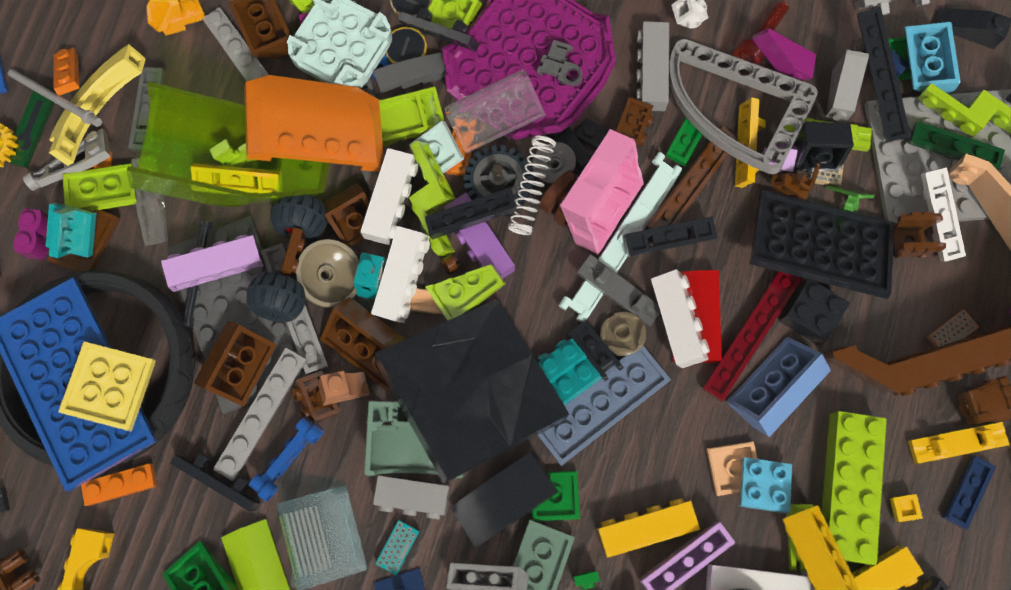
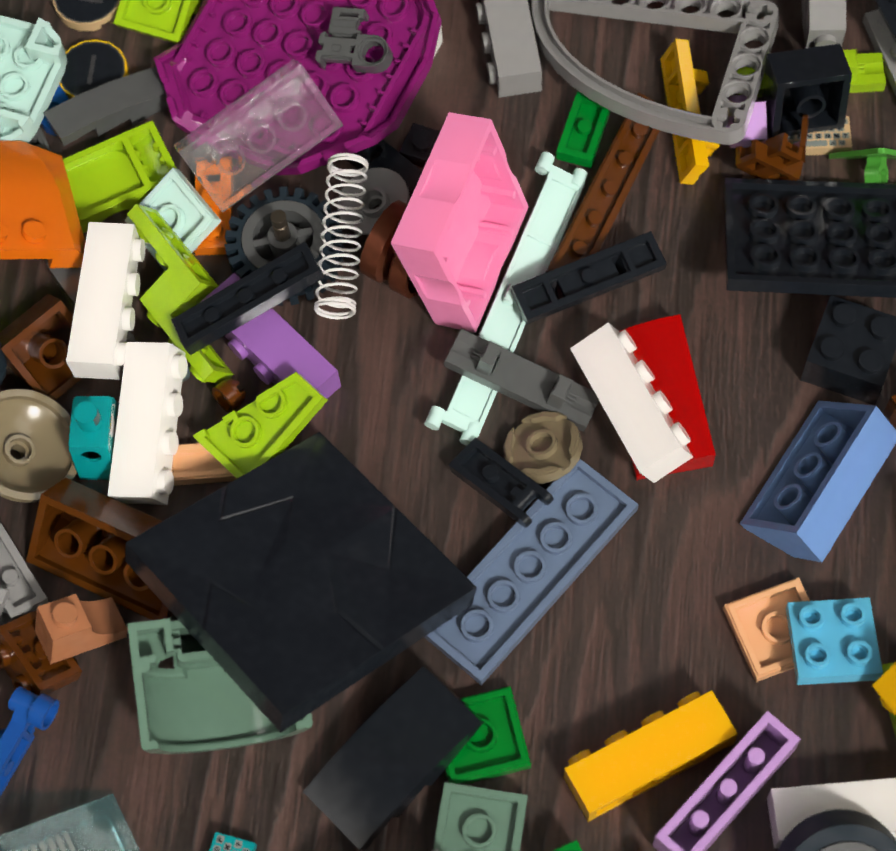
camera: 10 degrees left, 10 degrees down
(411, 497) = (231, 785): light grey brick -> none
(423, 24) = (170, 35): black hinge -> none
(568, 370) = (463, 522): teal plate -> none
(635, 119) = (498, 101): reddish brown bracket -> none
(751, 335) = (758, 407): dark red plate -> none

